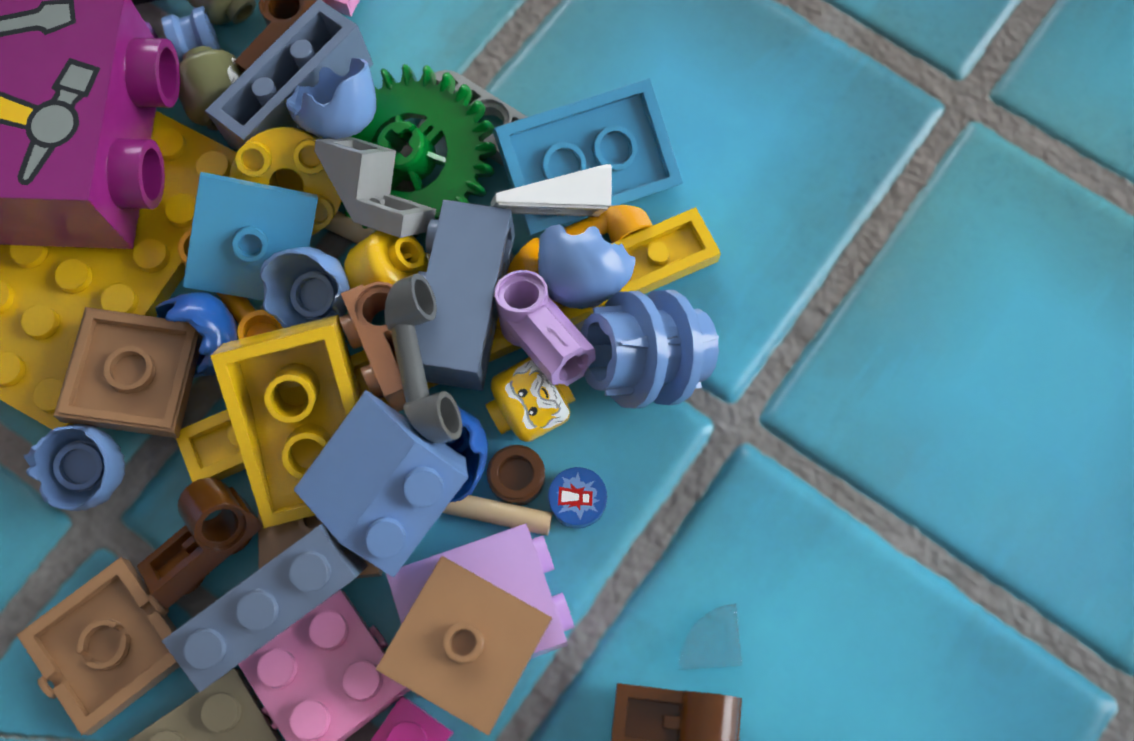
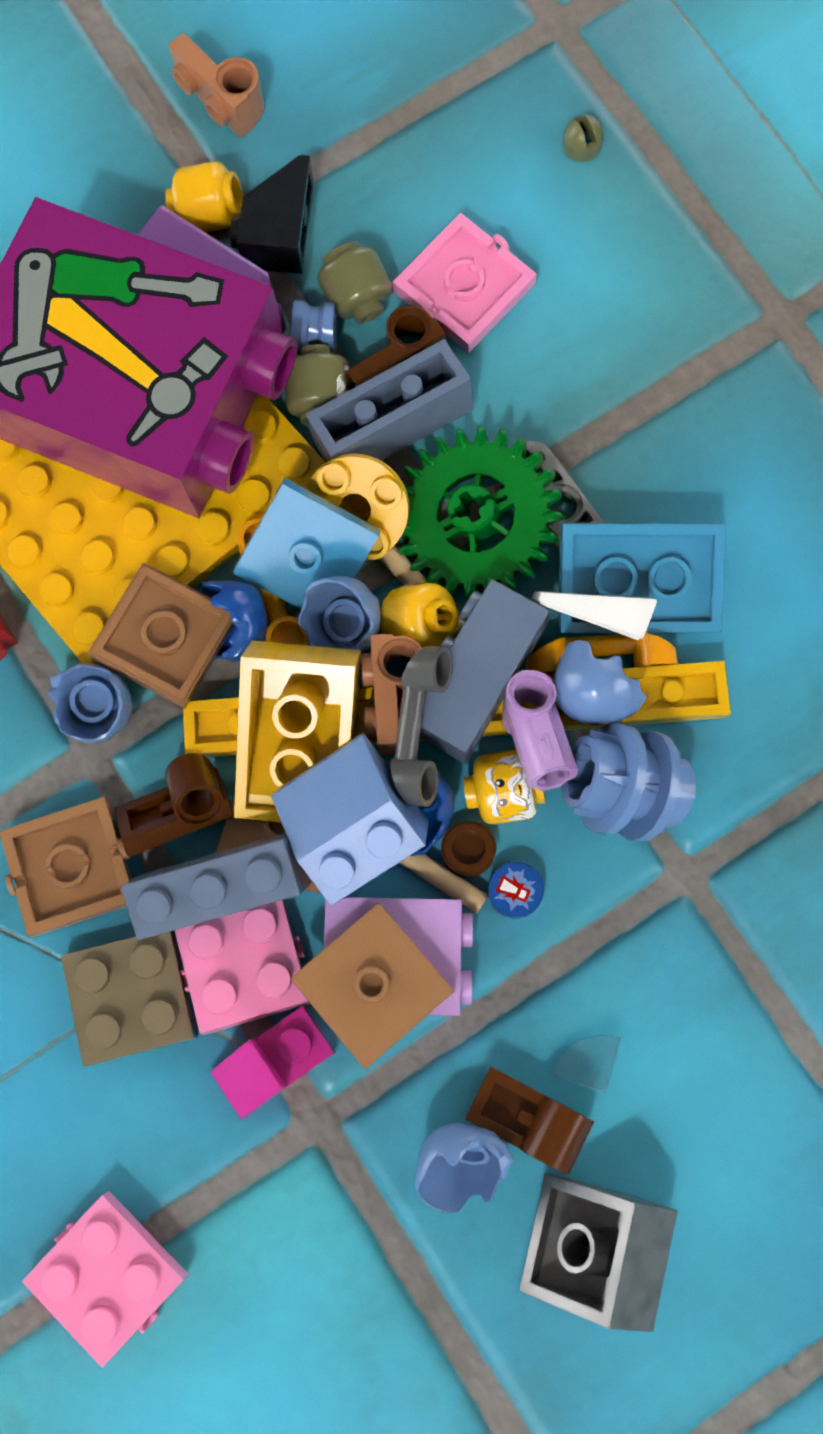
camera: 25 degrees right, 5 degrees up
(337, 104) = (425, 450): medium blue hair -> none
(363, 181) = (424, 530): light grey slope -> none

